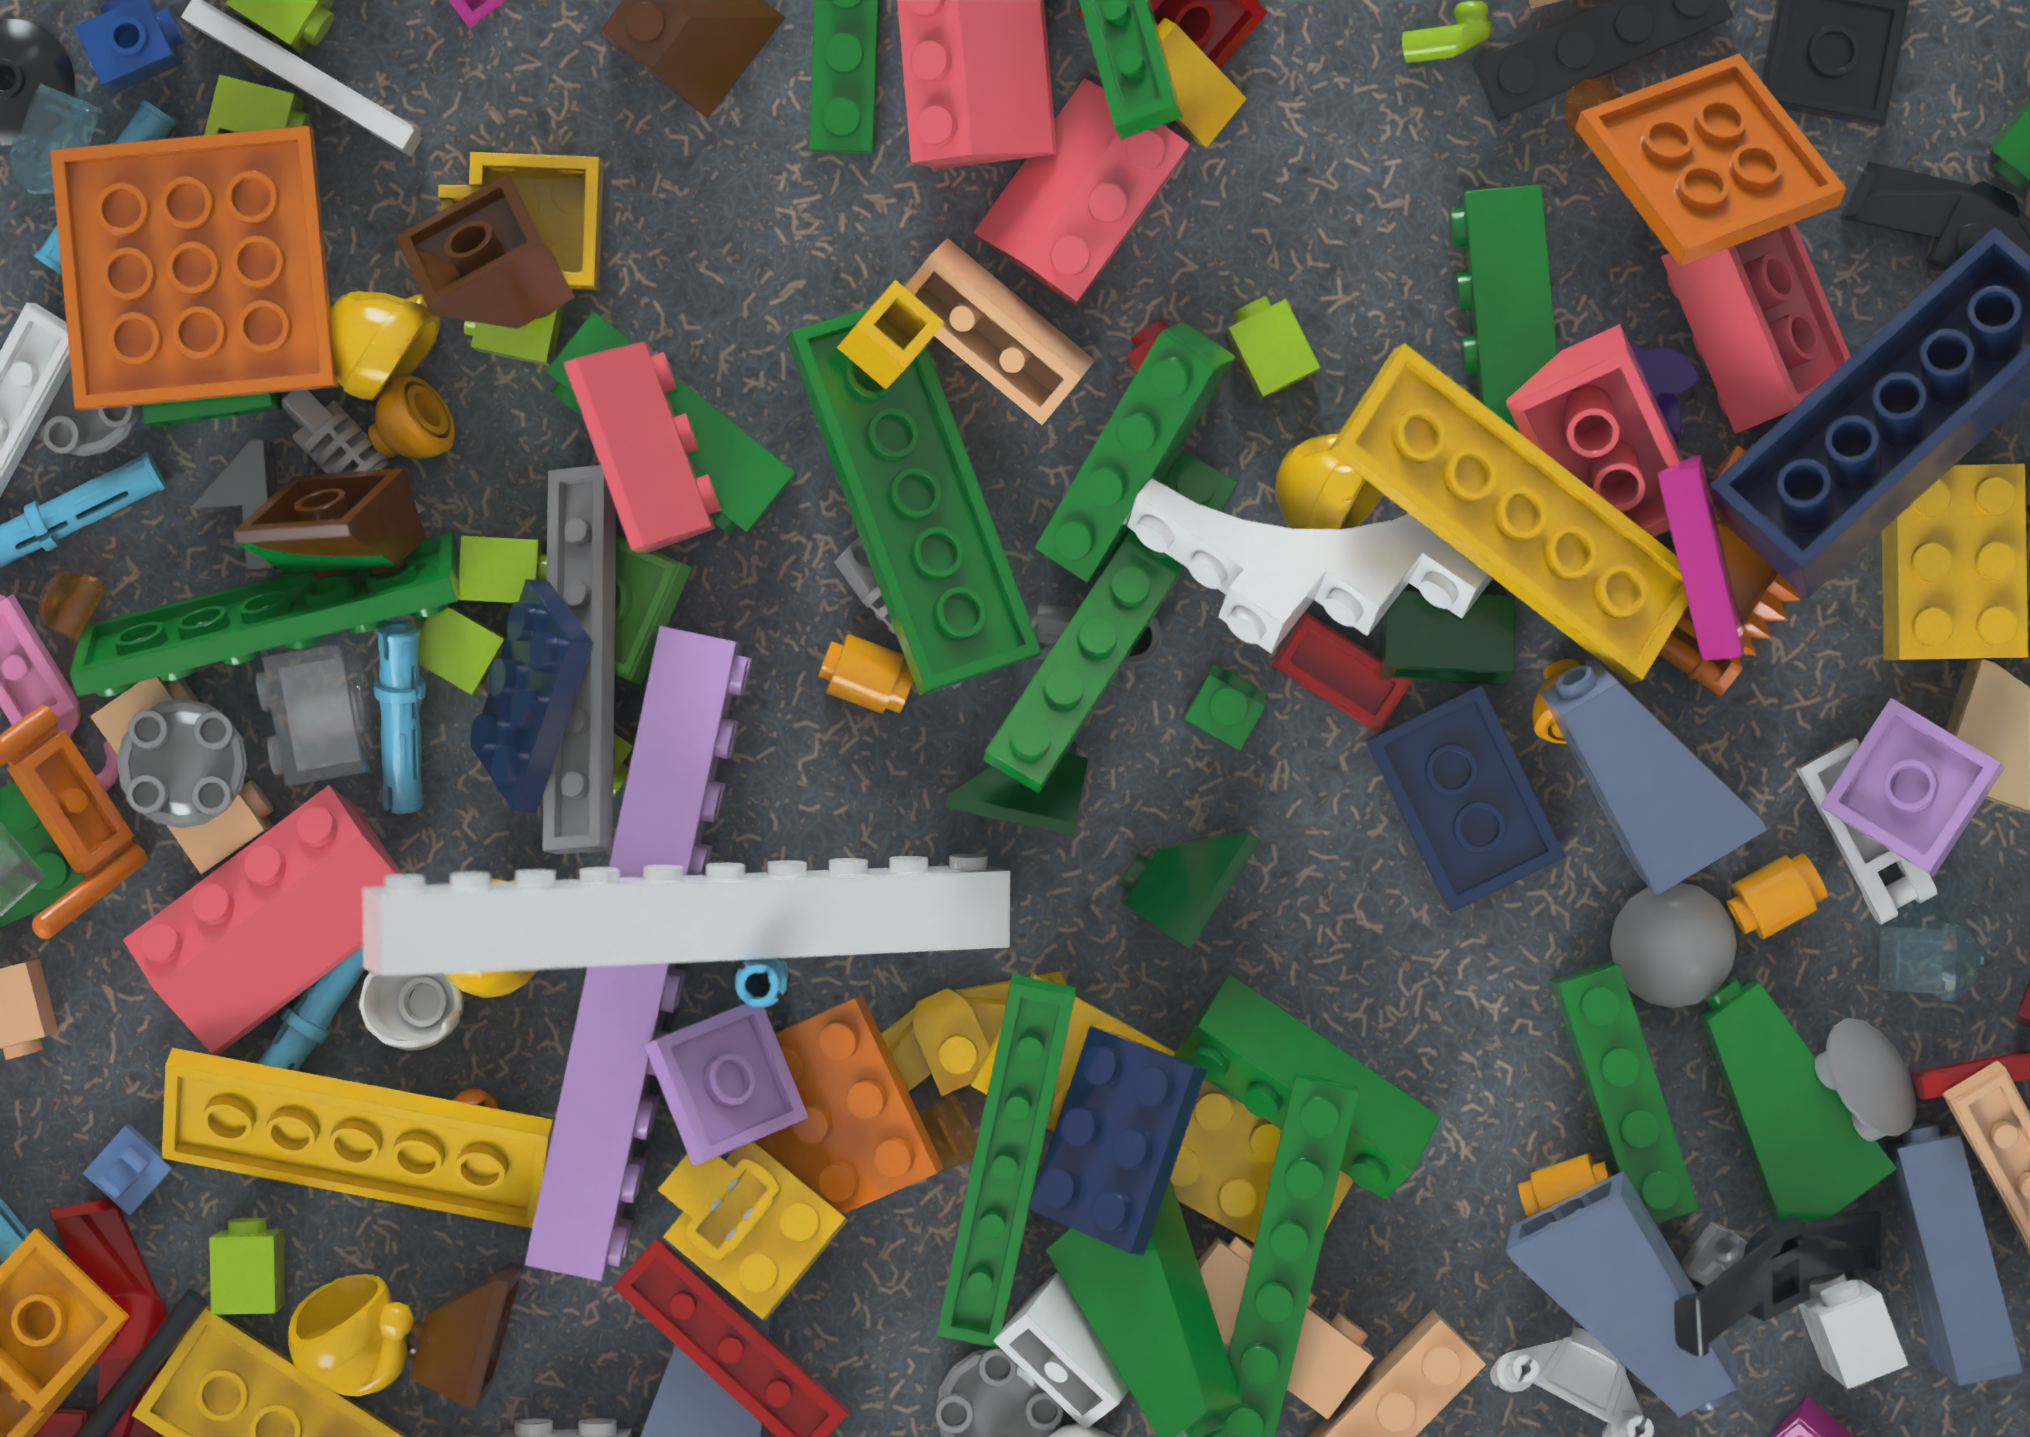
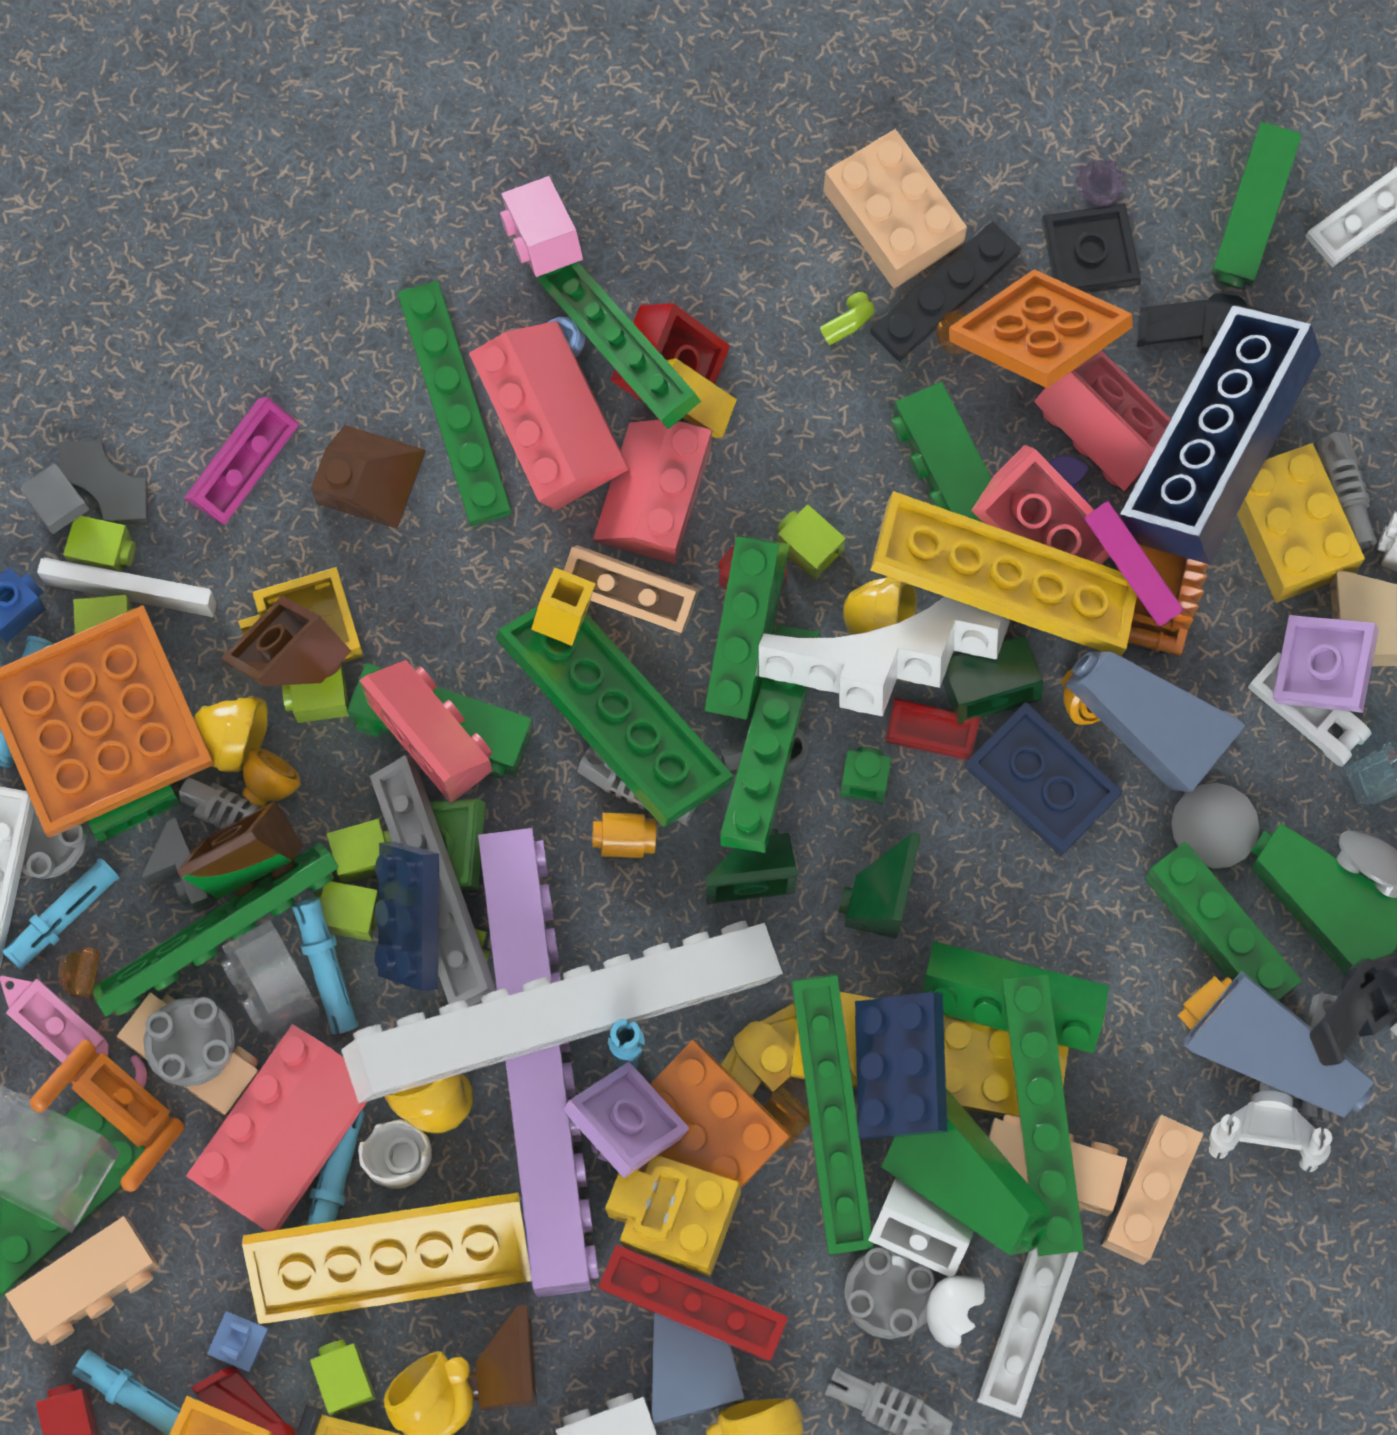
camera: 15 degrees left, 15 degrees down
(1776, 895) = (1269, 768): light orange brick -> none

